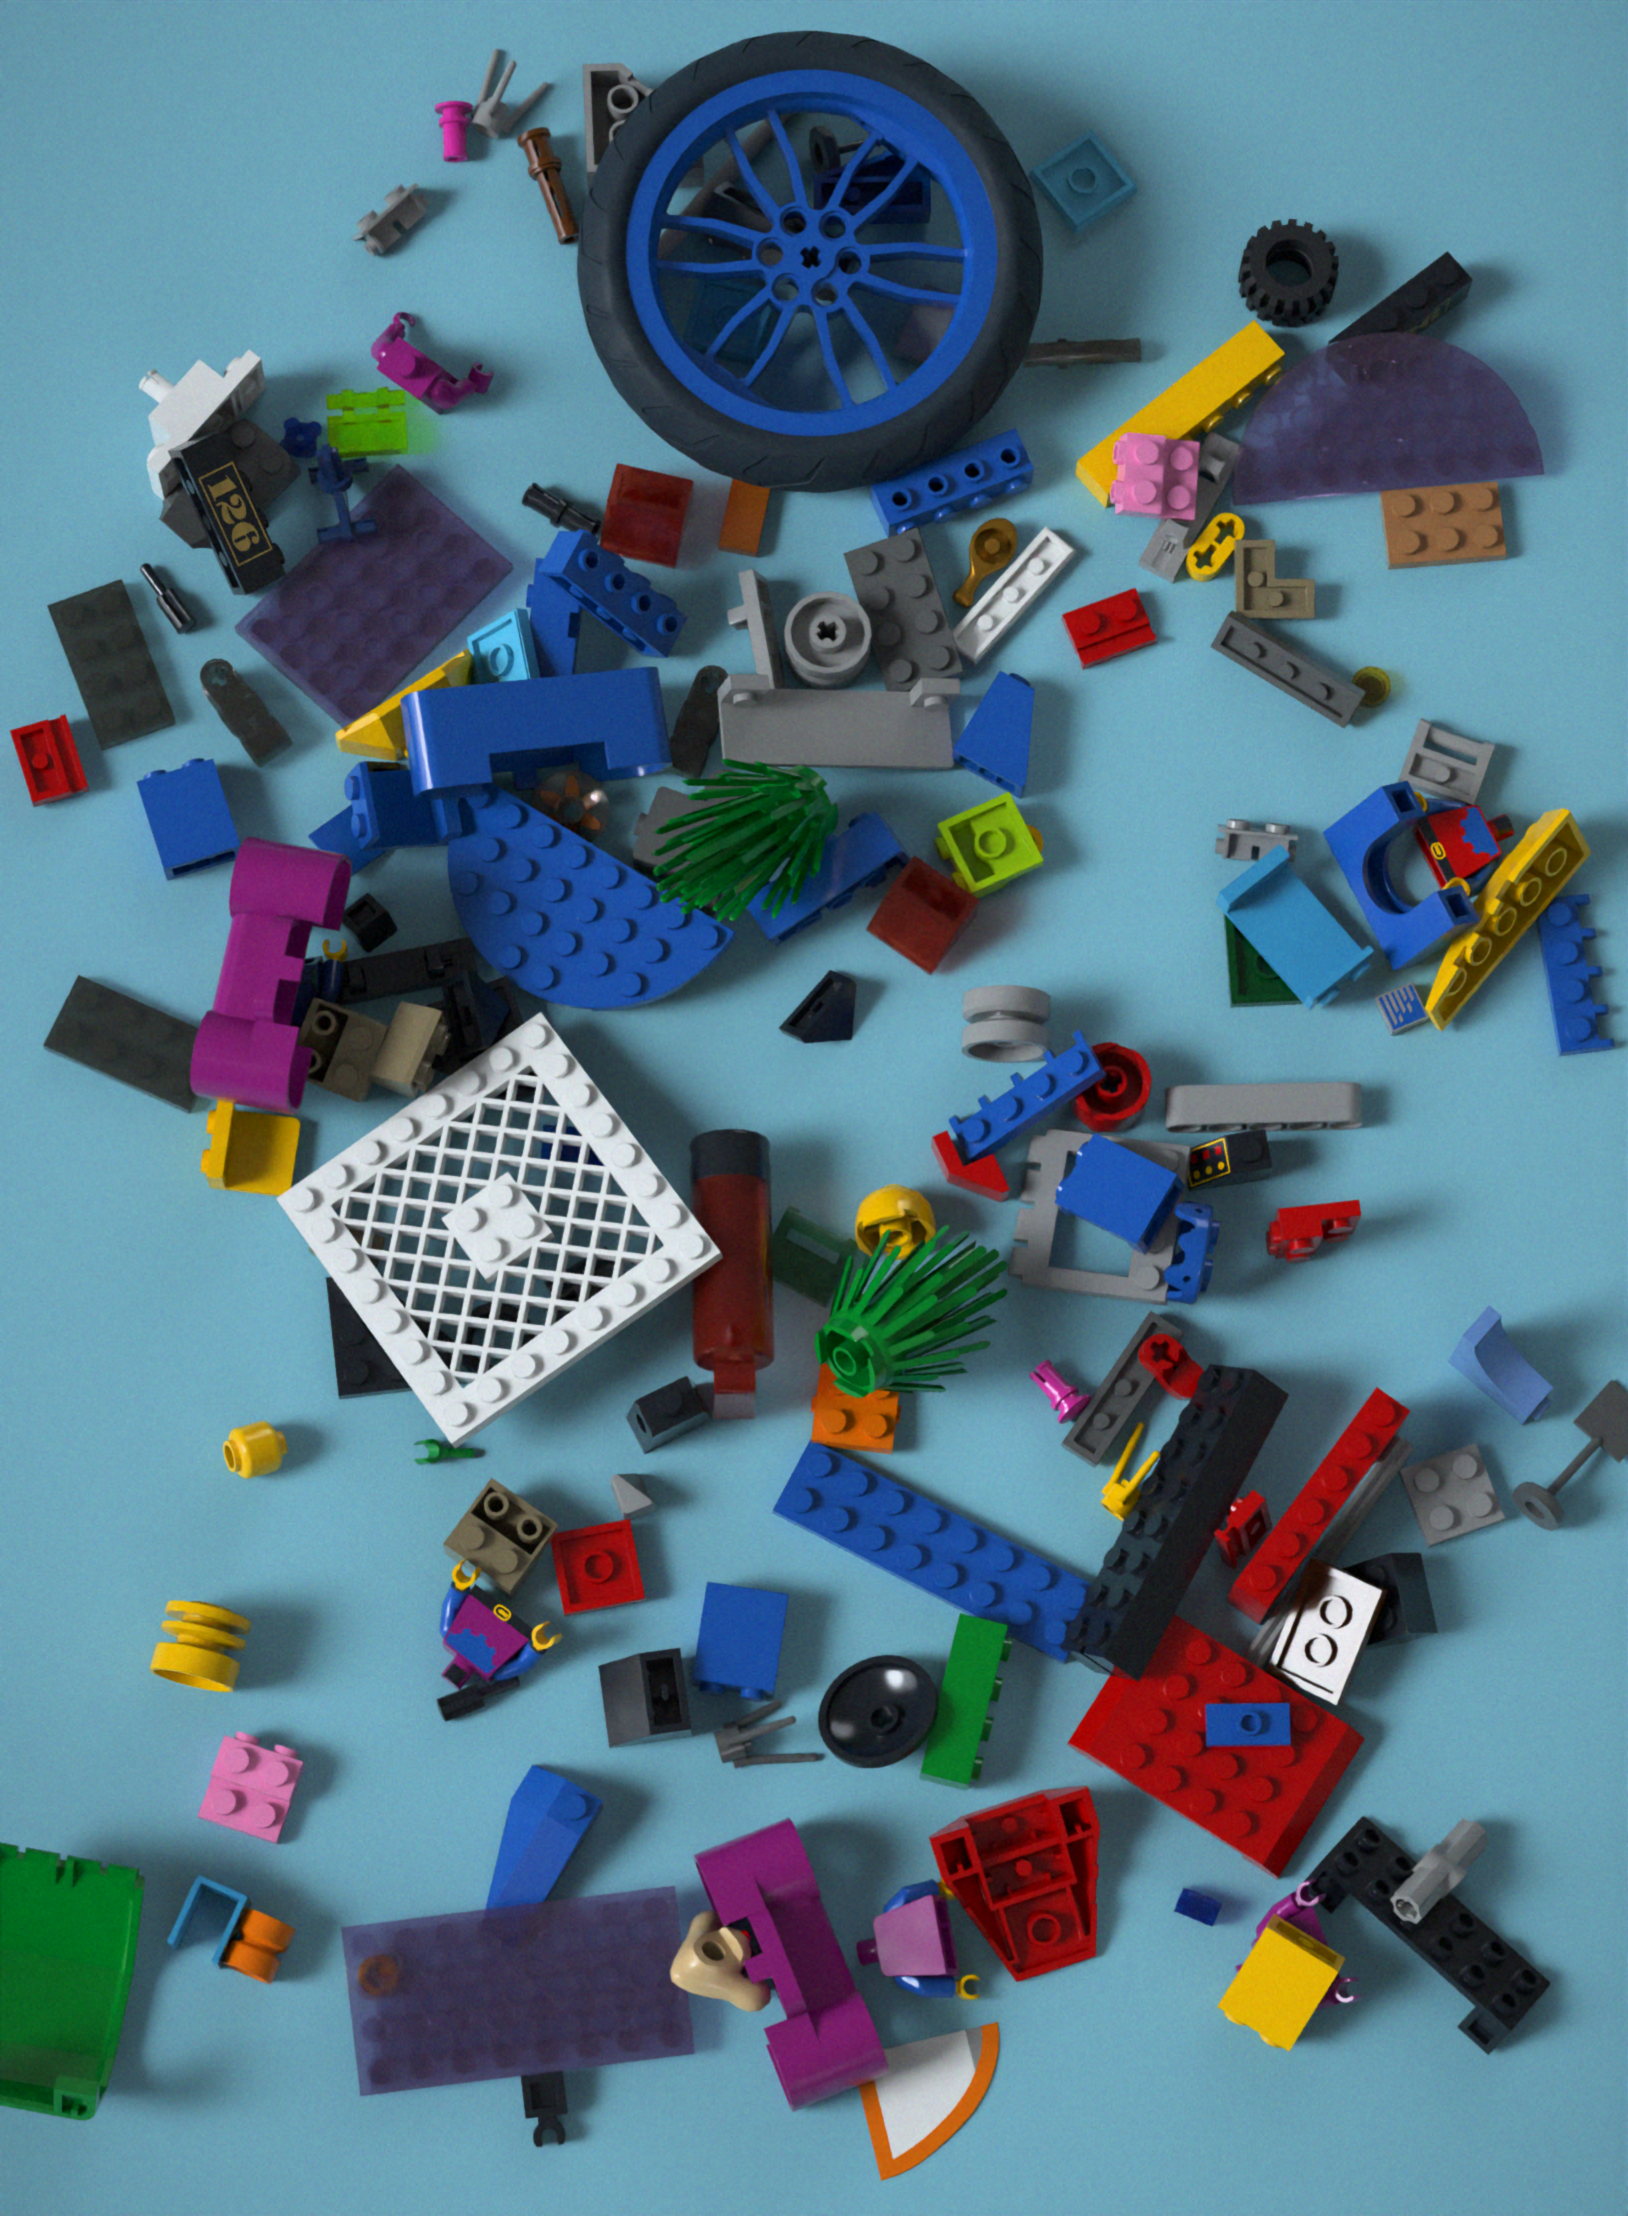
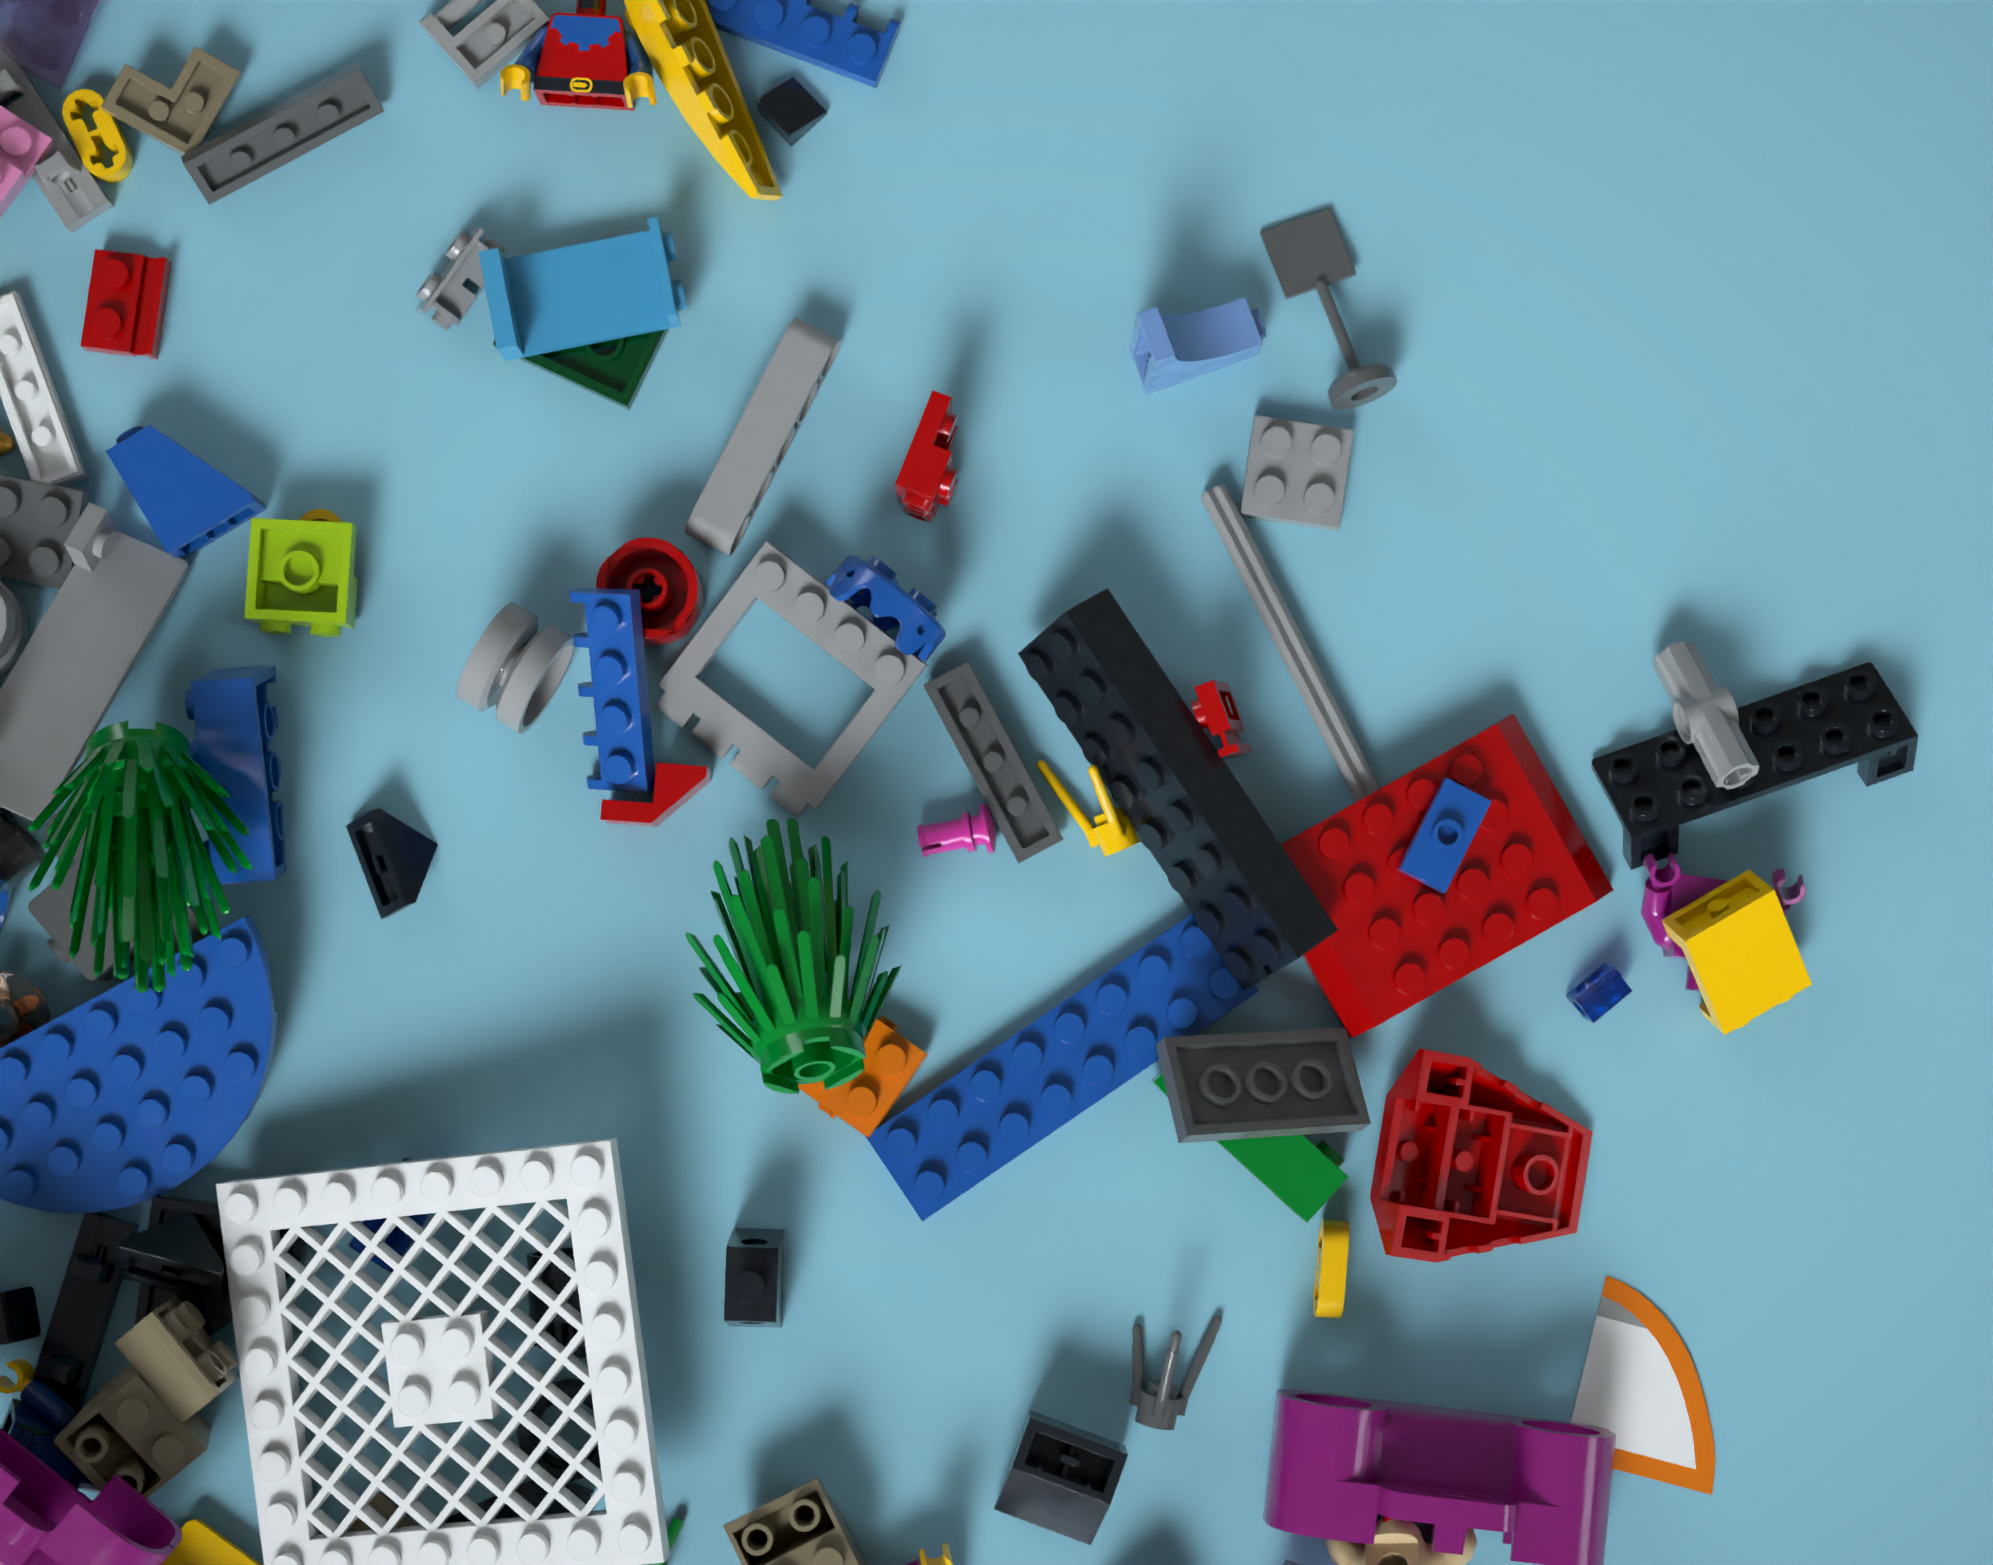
camera: 60 degrees left, 10 degrees up
(597, 1567) = (883, 1452): red plate -> none
(631, 1495) = (822, 1369): light grey slope -> none
(735, 1294) = (663, 1138): clear red piece -> none
(739, 1641) = (1050, 1338): blue brick -> none
(803, 1269) = (668, 1041): clear green plate -> none
(867, 1699) = (1186, 1234): black dish -> none
(895, 1815) = (1331, 1269): none -> yellow beam
(897, 1209) = (669, 905): yellow cylinder -> none
(917, 1942) = (1487, 1323): magenta torso -> none
(923, 915) = (341, 690): clear red slope -> none
(1001, 1687) = (1262, 1084): none -> dark grey plate
(1119, 1192) = (778, 649): blue panel -> none
(1170, 1365) = (979, 708): red piece -> none
(1230, 1161) = (803, 505): black slope -> none
(1317, 1505) = (1208, 546): red arch -> none
(1326, 1631) = (1382, 690): plate -> none
(1362, 849) = (532, 167): blue arch -> none
(1375, 683) = (352, 48): clear yellow tile -> none
(1401, 1009) = (733, 226): tile -> none
(1407, 1606) = (1377, 612): black slope -> none
(1507, 1004) = (790, 110): none -> black slope

